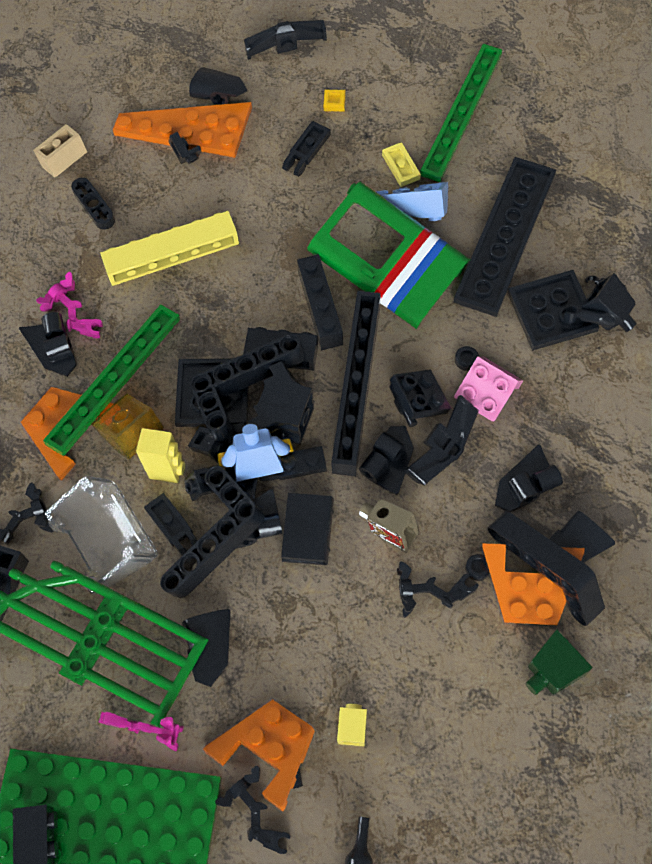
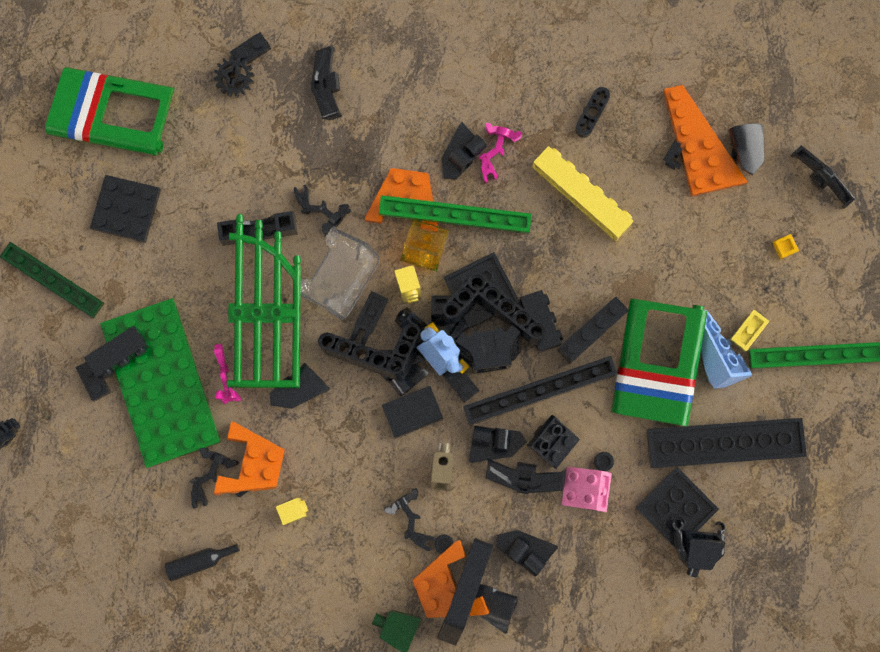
camera: 60 degrees right, 15 degrees up
(60, 150) = (622, 62): tan brick -> none
(306, 147) = (727, 248): black hinge -> none

